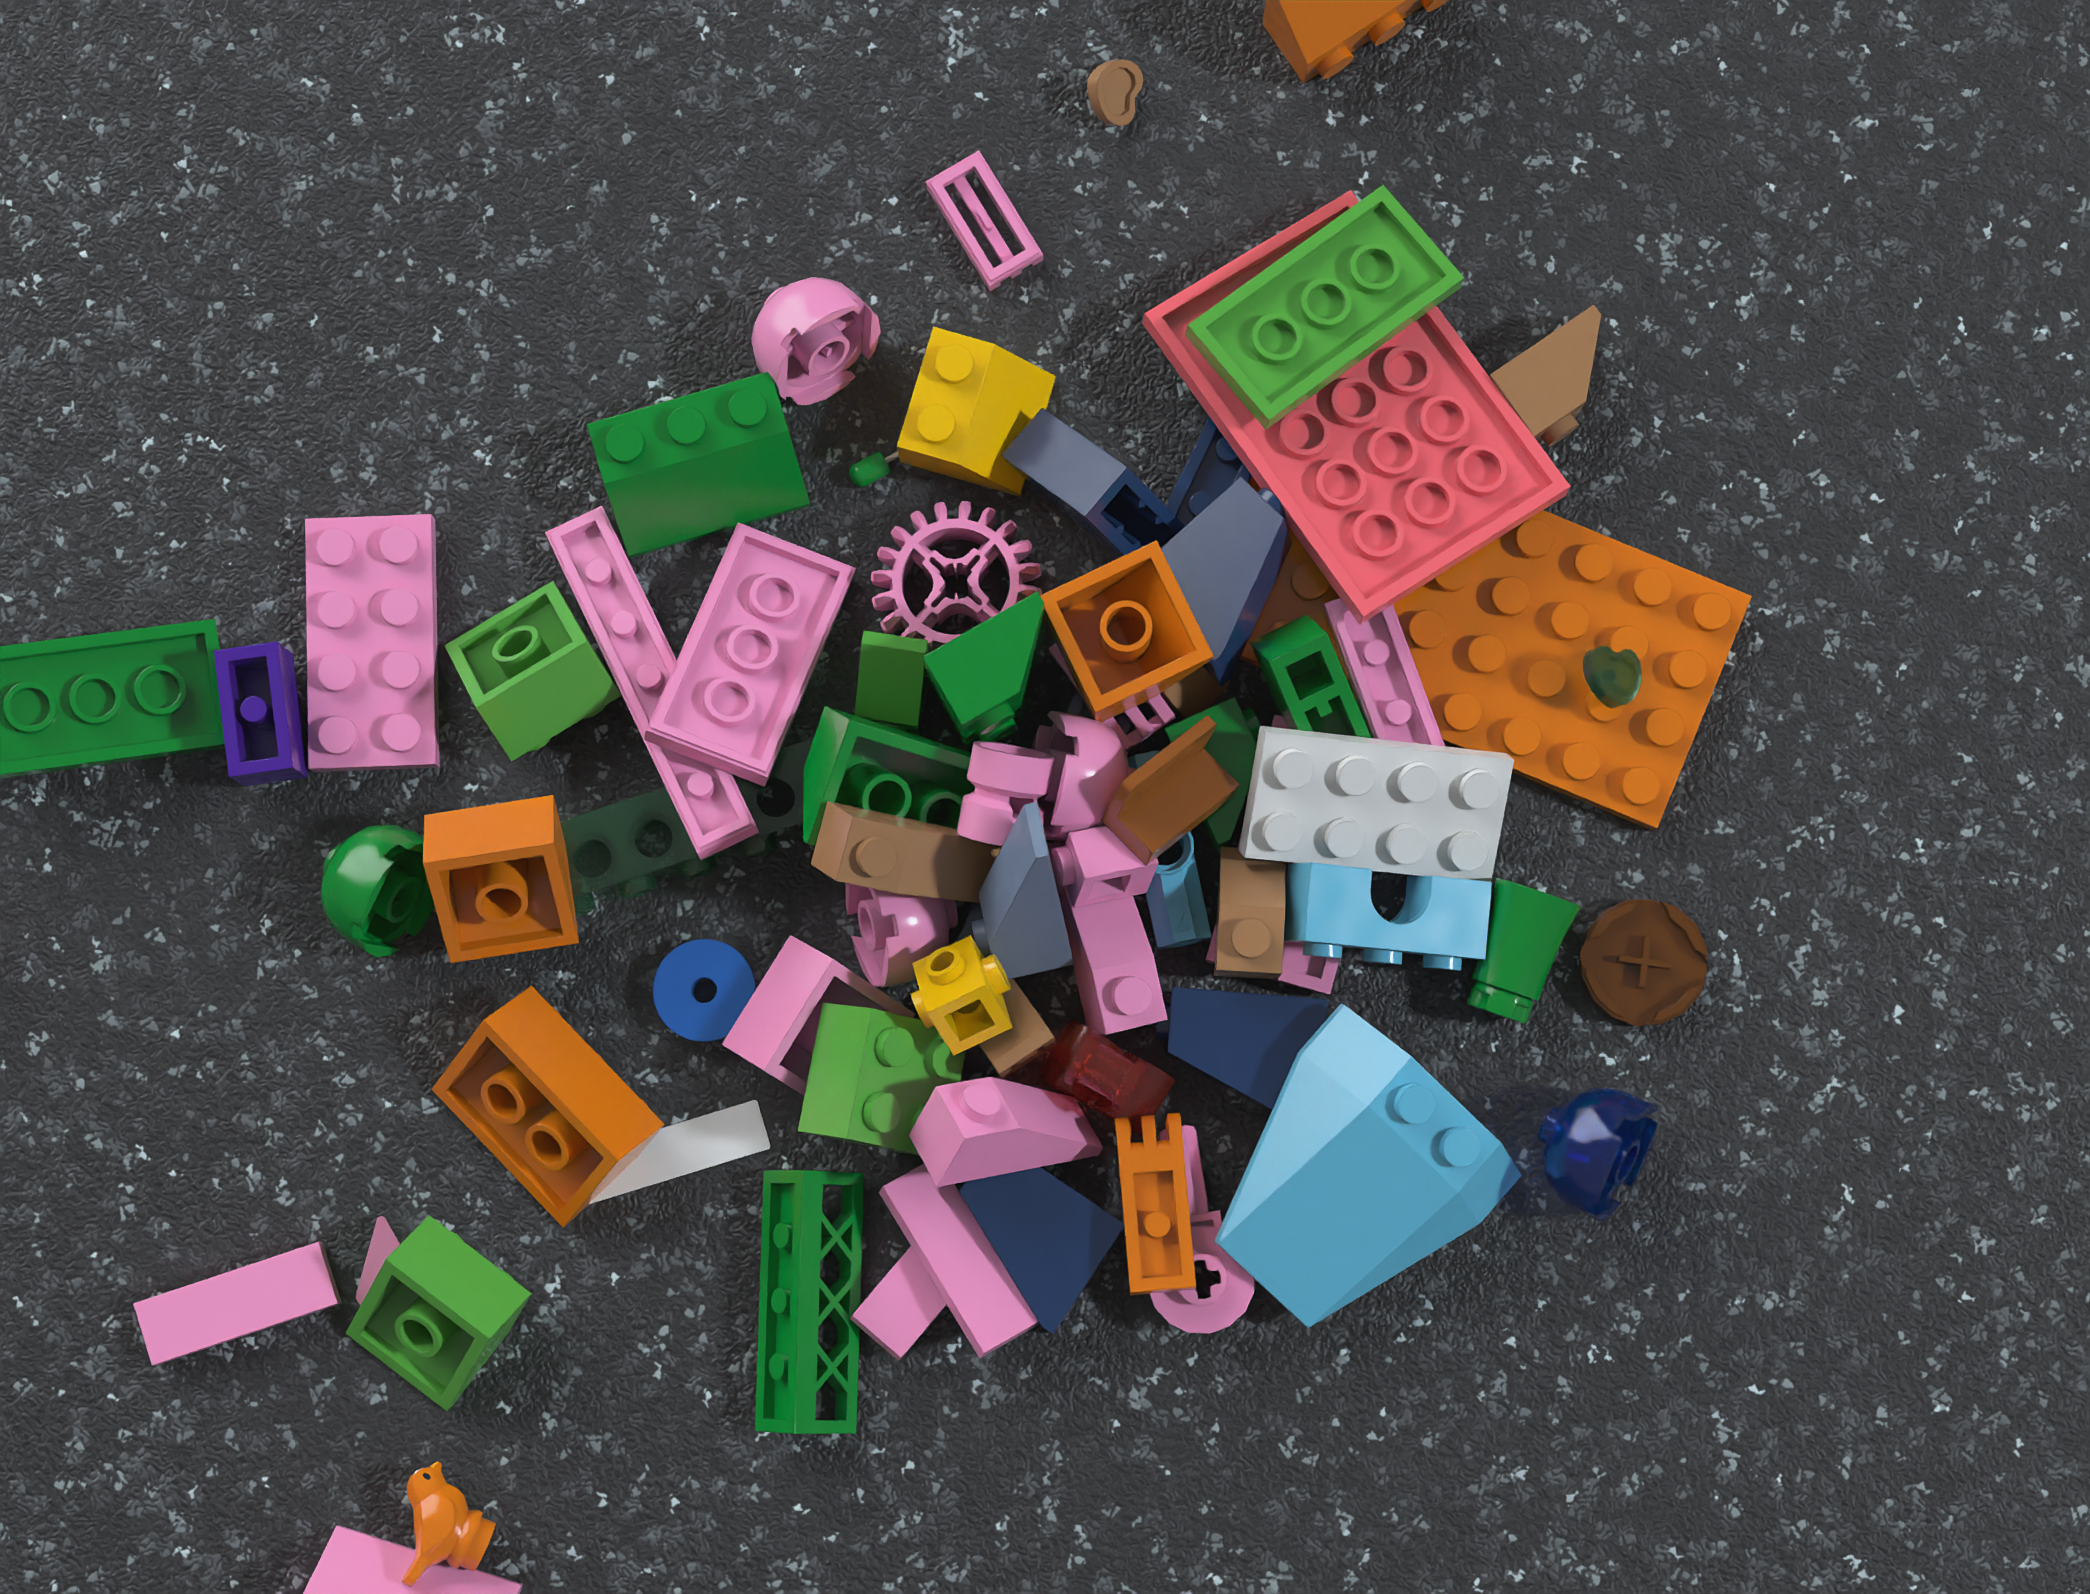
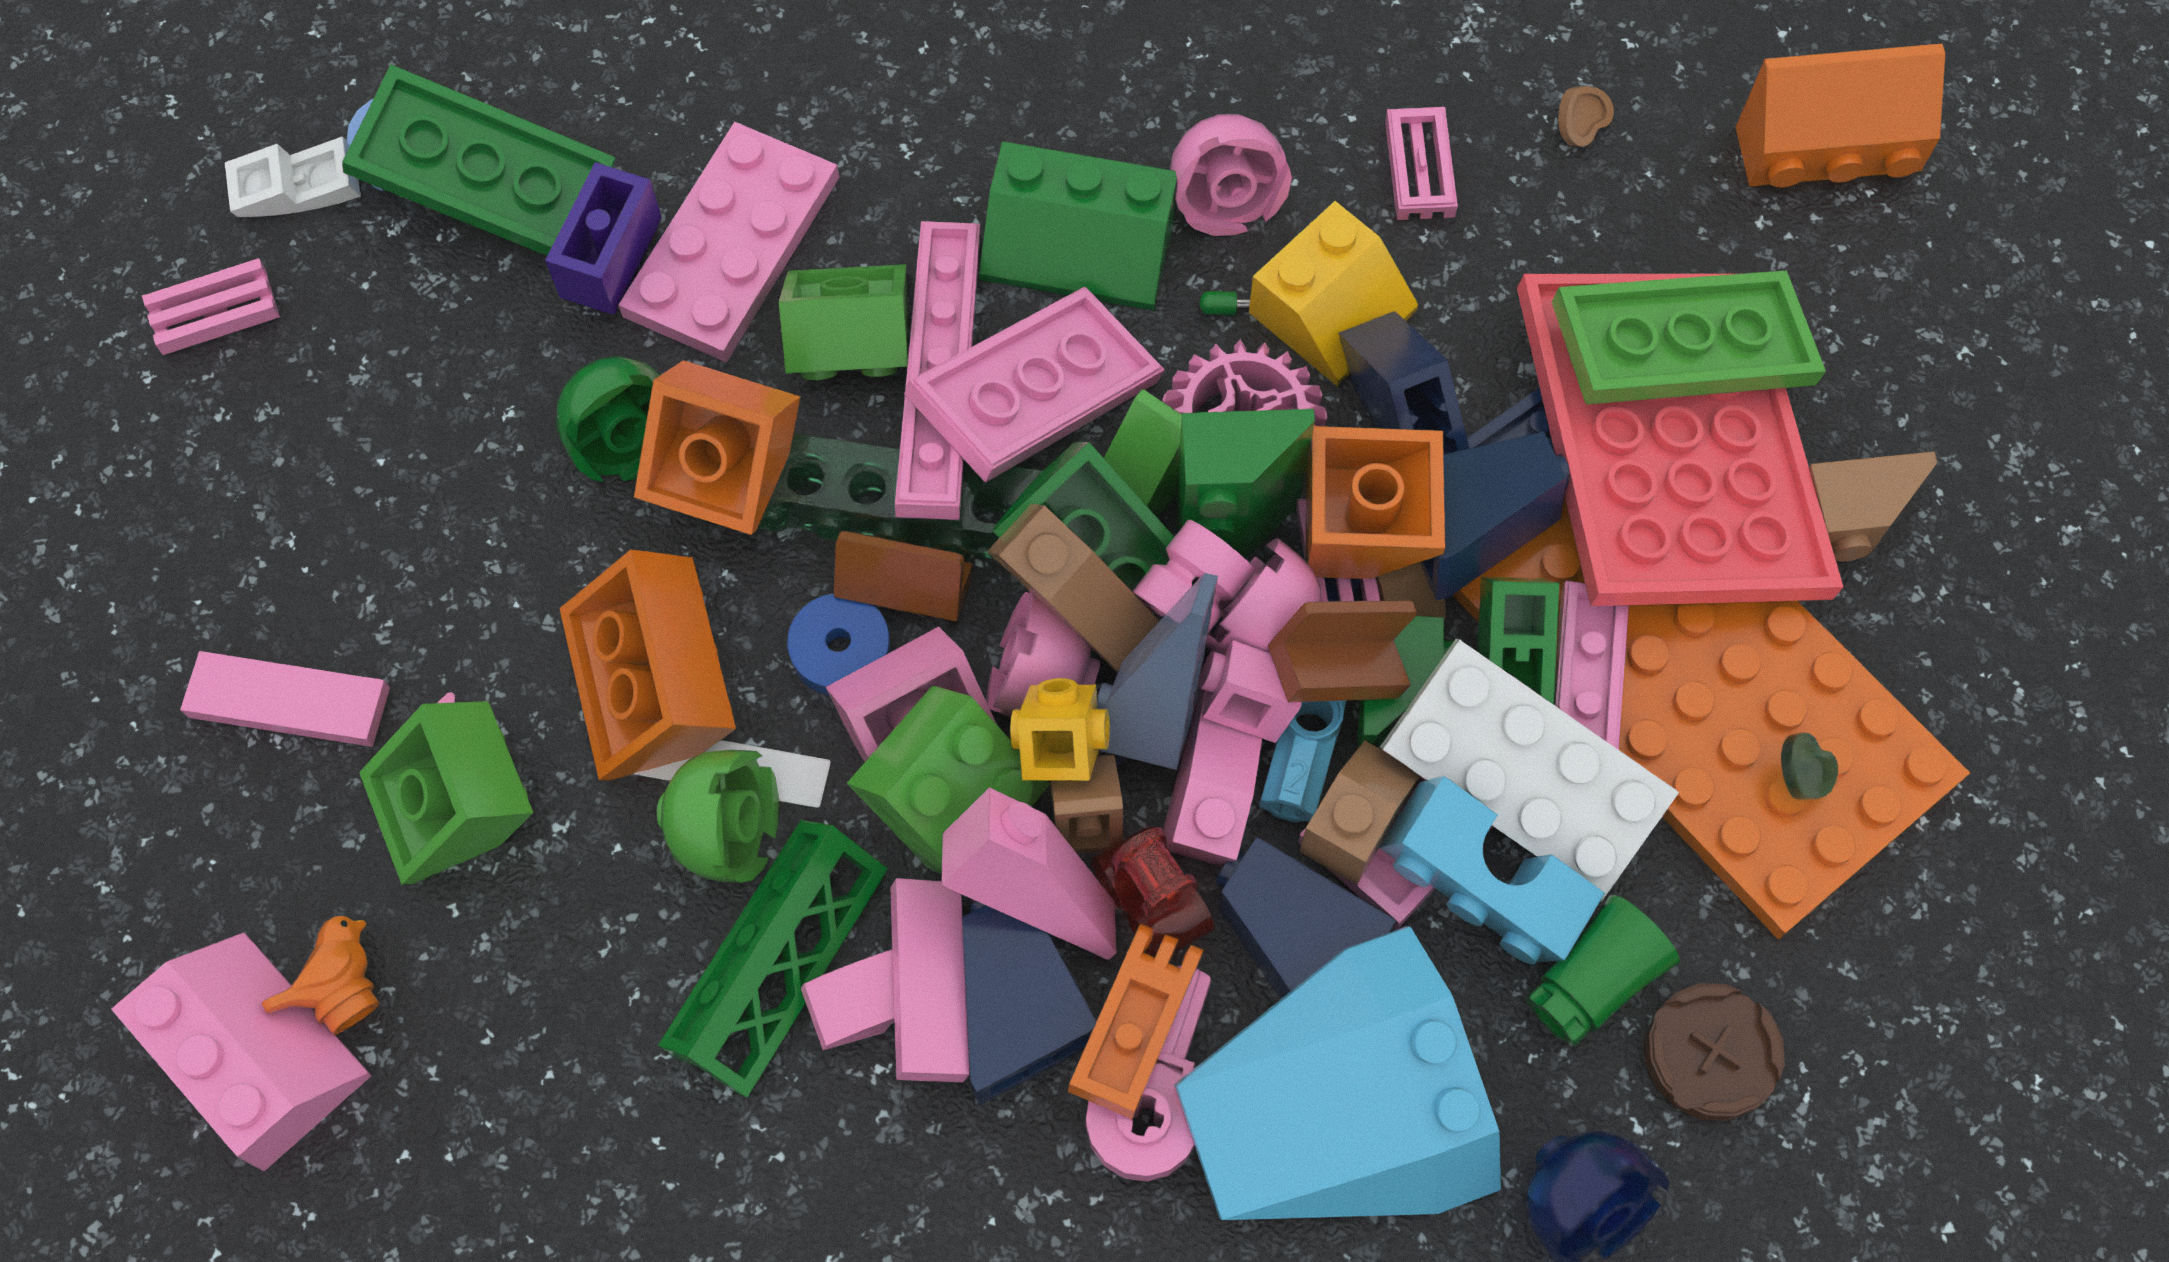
camera: 25 degrees right, 15 degrees down
(692, 1209) = (718, 814): none -> bright green cylinder
(729, 903) = (900, 576): none -> dark orange panel

